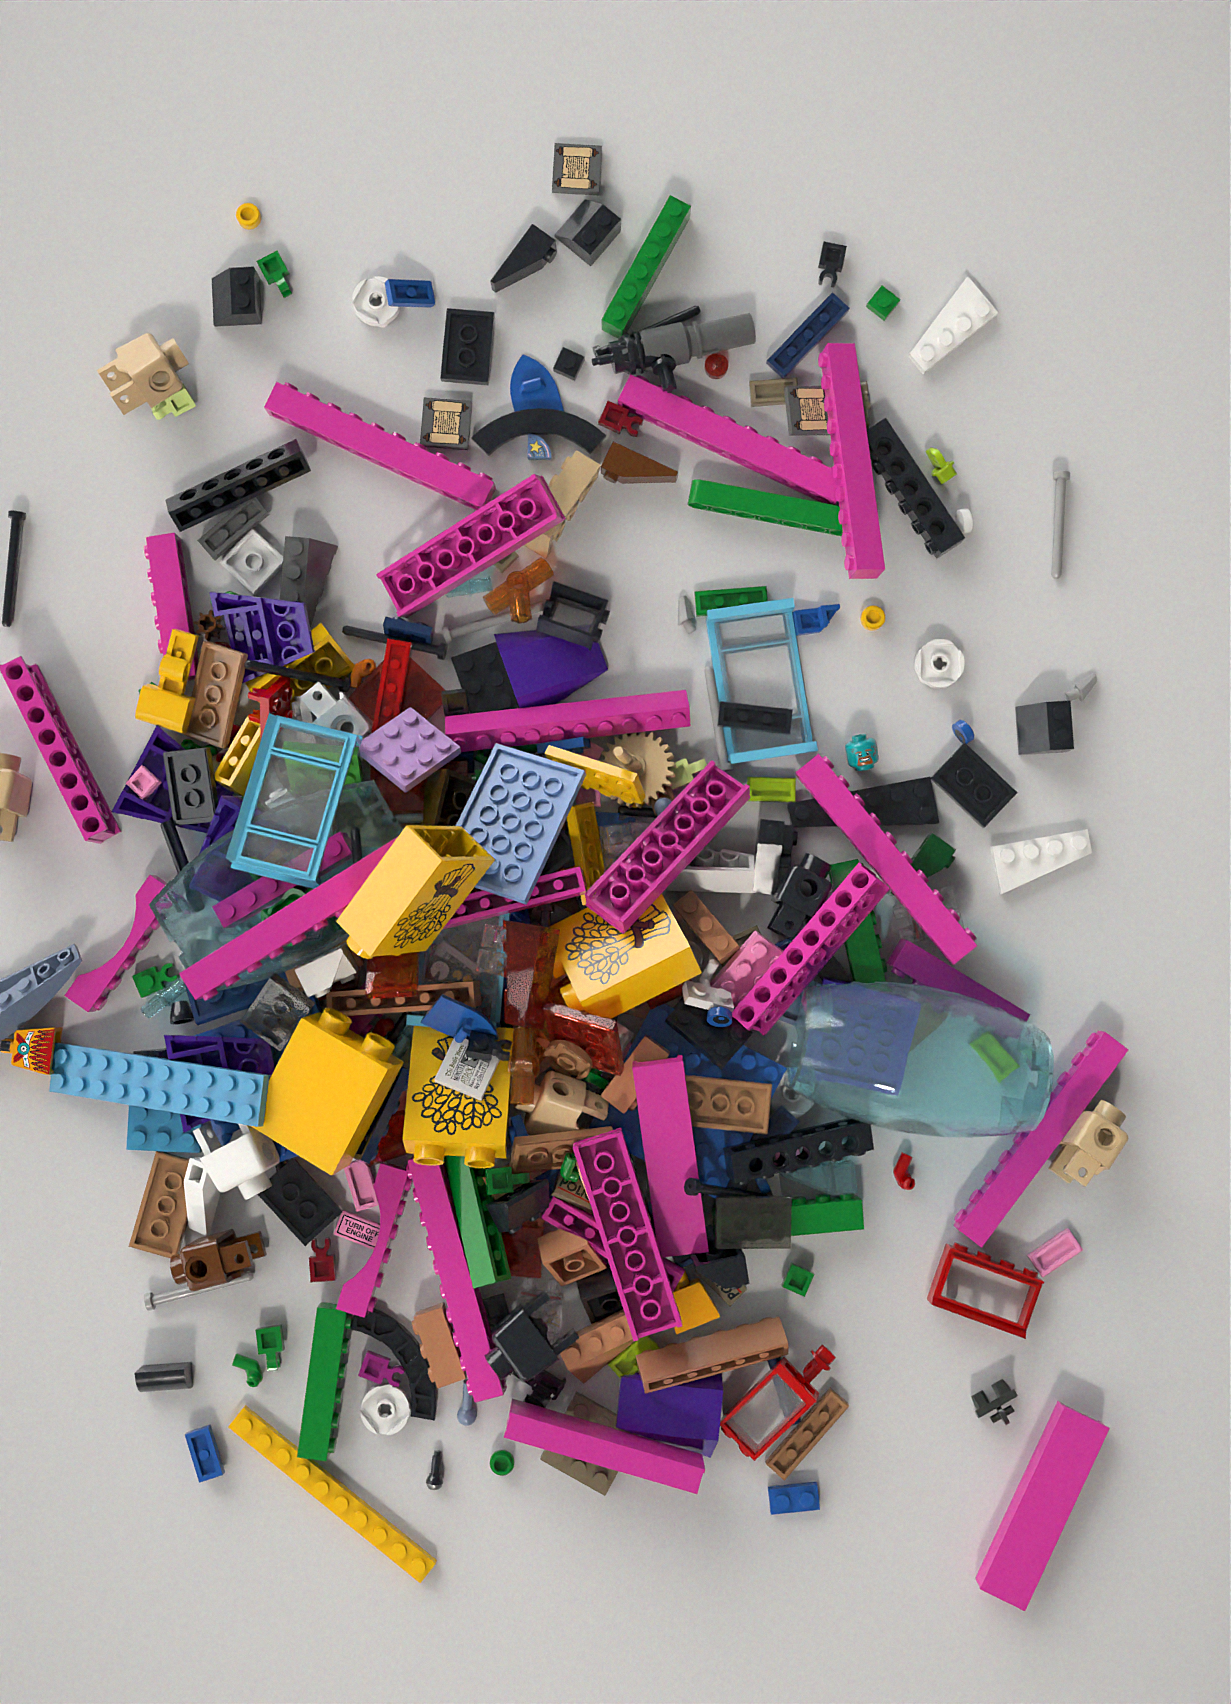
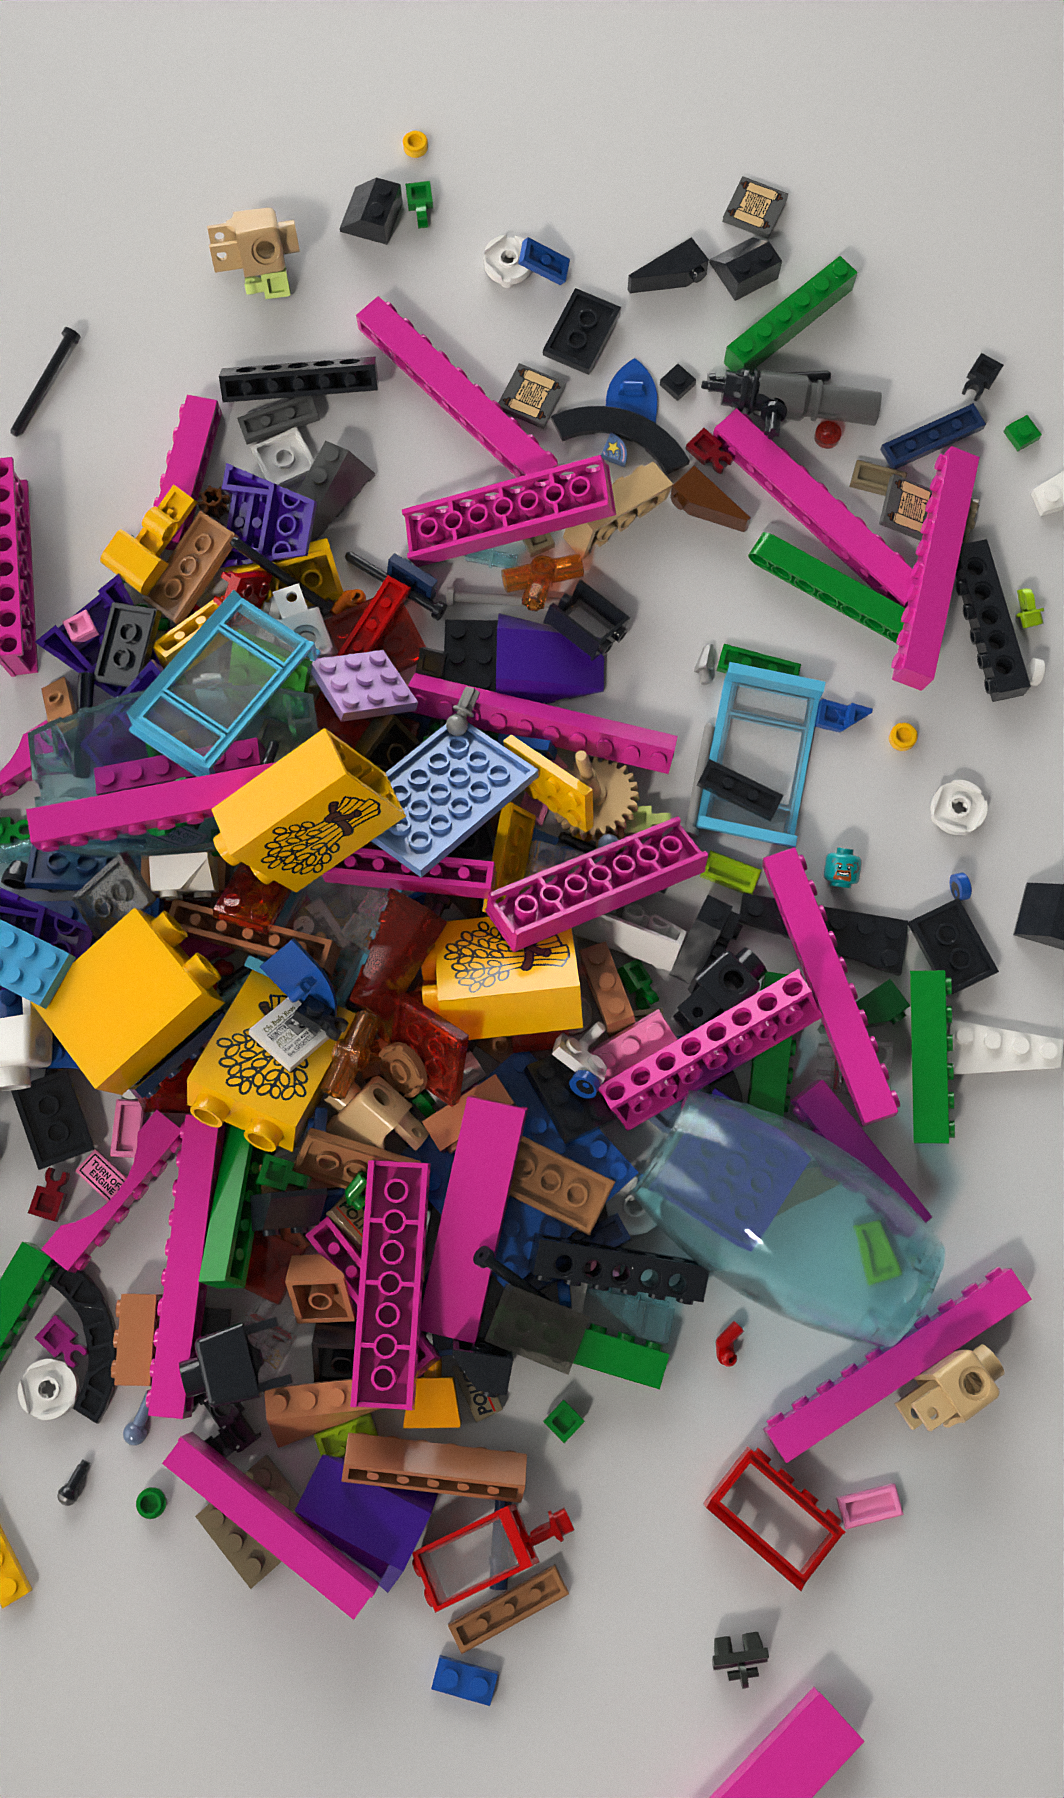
camera: 20 degrees right, 10 degrees down
(153, 854) = (58, 699): none -> medium nougat plate
(500, 752) = (457, 723): none -> light grey axle
(728, 910) = (638, 981): none -> green plate
(985, 885) = (929, 1057): none -> green brick

